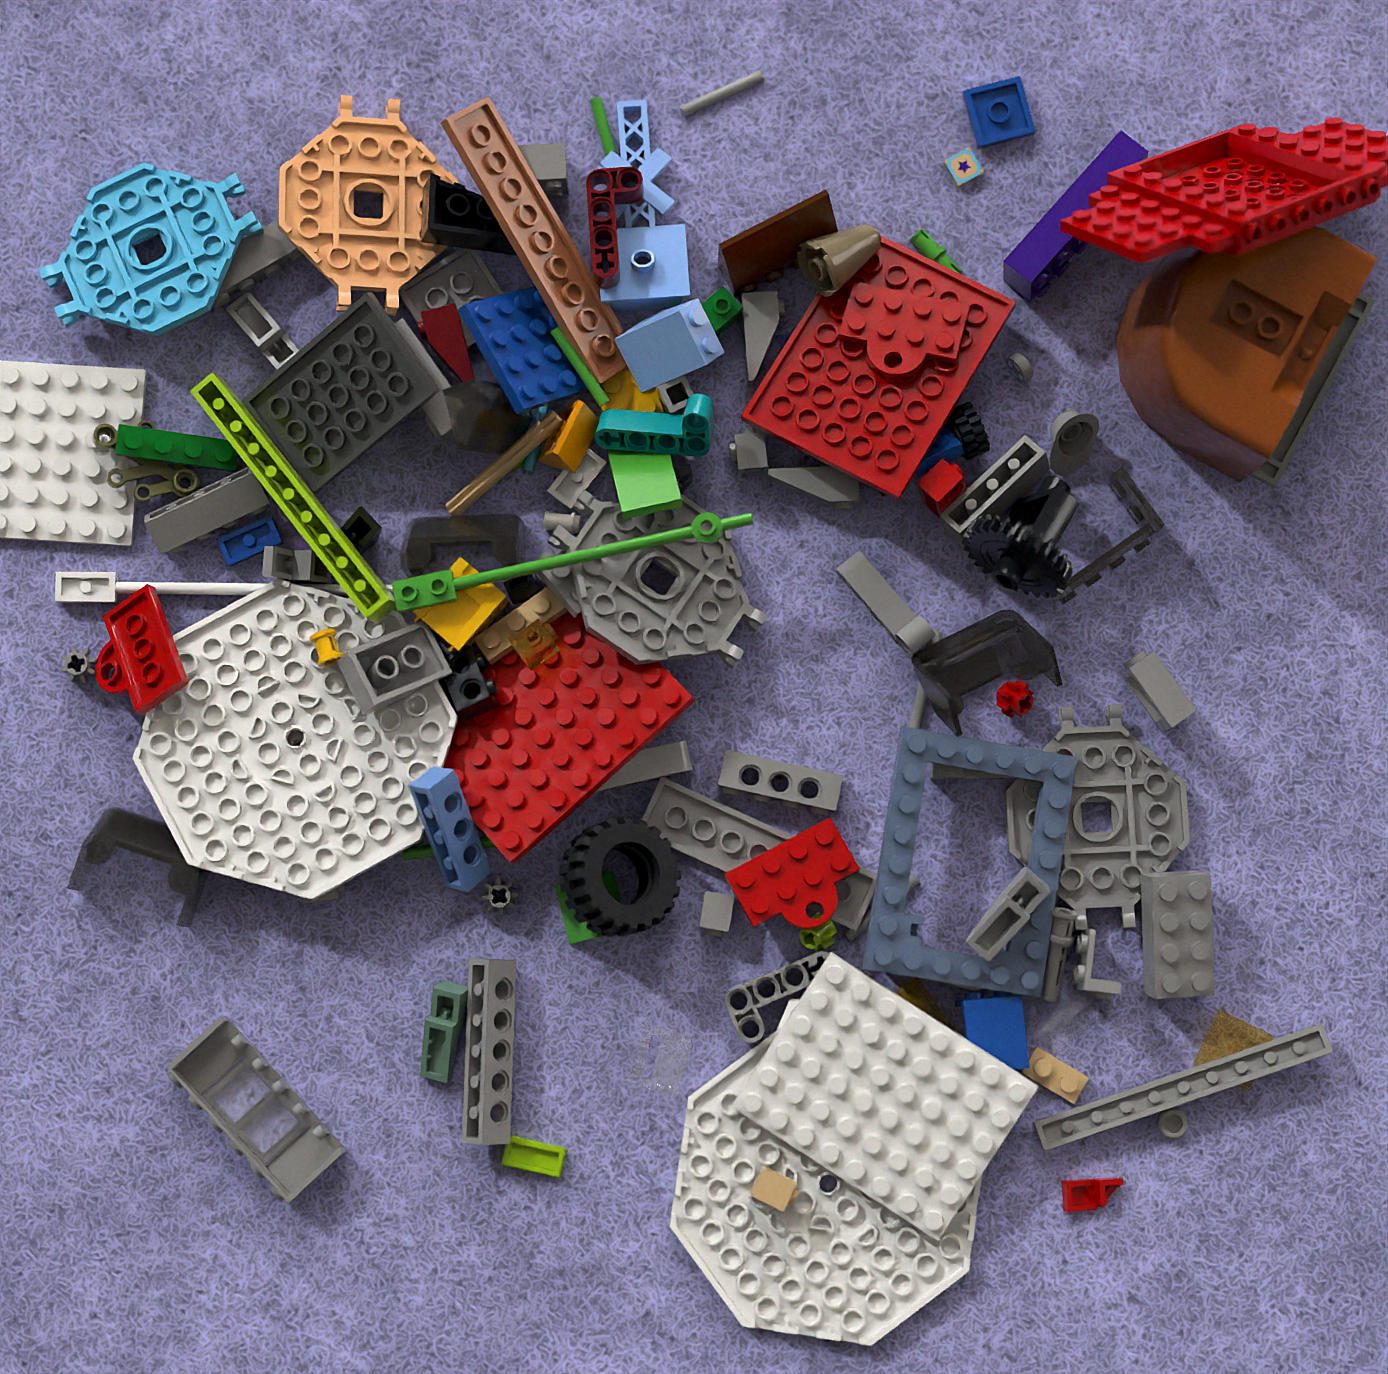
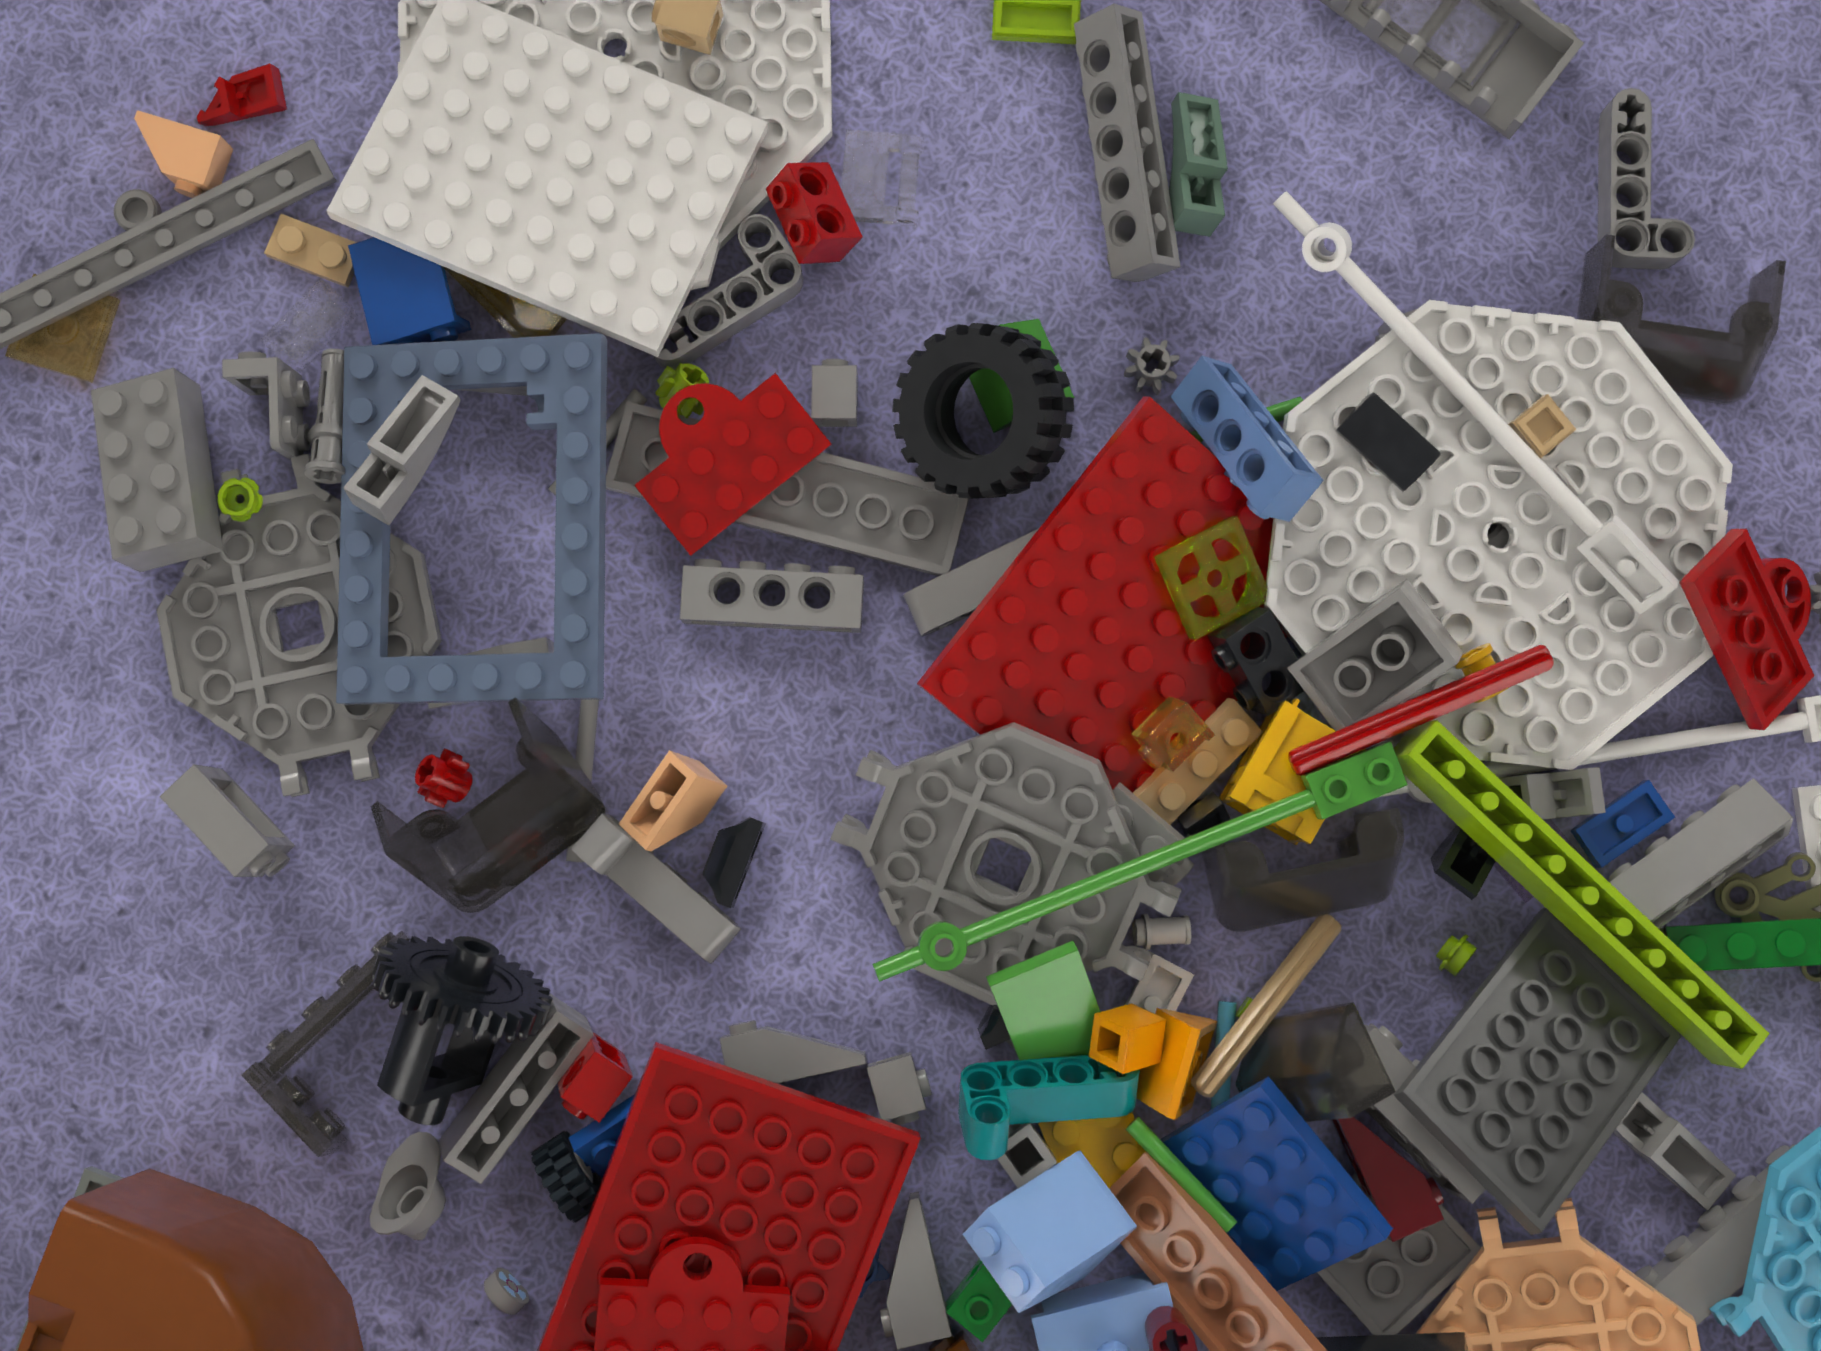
camera: 175 degrees right, 0 degrees up
(148, 968) = (1635, 183): none -> light grey beam
(228, 716) = (1608, 546): none -> white bar
(254, 802) = (1542, 426): none -> tan tile
(359, 807) = (1388, 441): none -> black slope
(373, 627) = (1420, 710): none -> red axle
(375, 476) = (1455, 954): none -> lime plate
(493, 760) = (1201, 546): none -> clear neon green piece
(598, 455) = (1127, 1038): none -> light orange brick
(710, 1038) = (813, 212): none -> red brick
(833, 614) = (731, 859): none -> black slope
(866, 657) = (672, 801): none -> light nougat slope
(1123, 897) = (228, 498): none -> lime plate
(1134, 1155) = (185, 154): none -> light nougat slope

